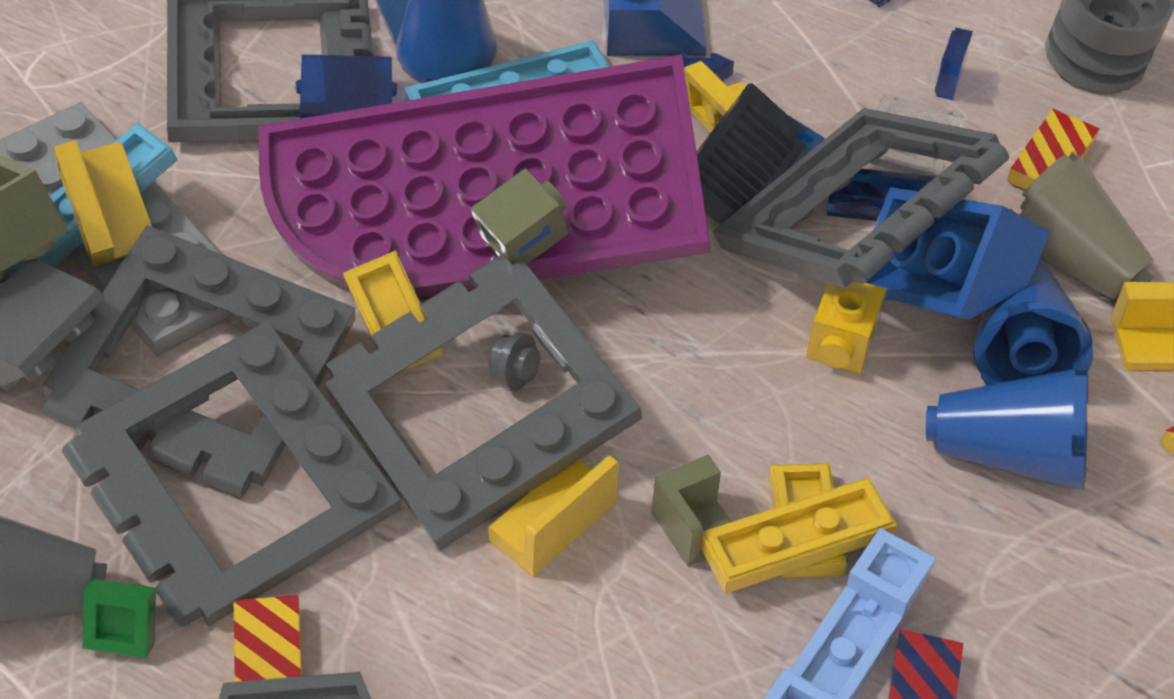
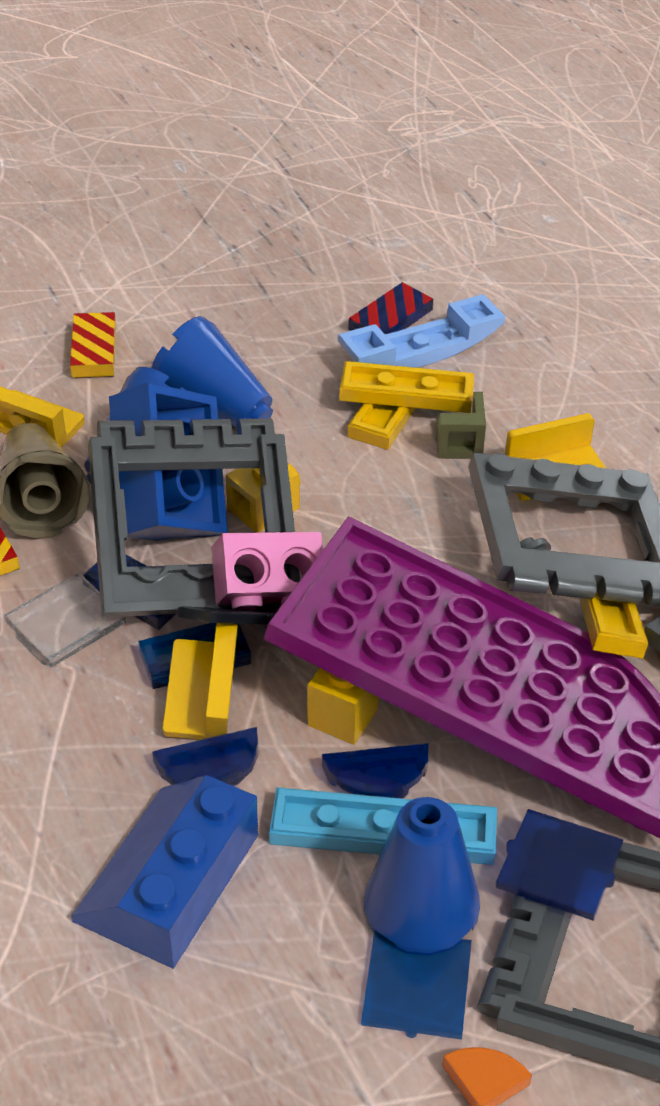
camera: 150 degrees left, 5 degrees down
(521, 218) = (489, 585): olive brick -> none
(756, 189) = (266, 558): none -> bright pink brick

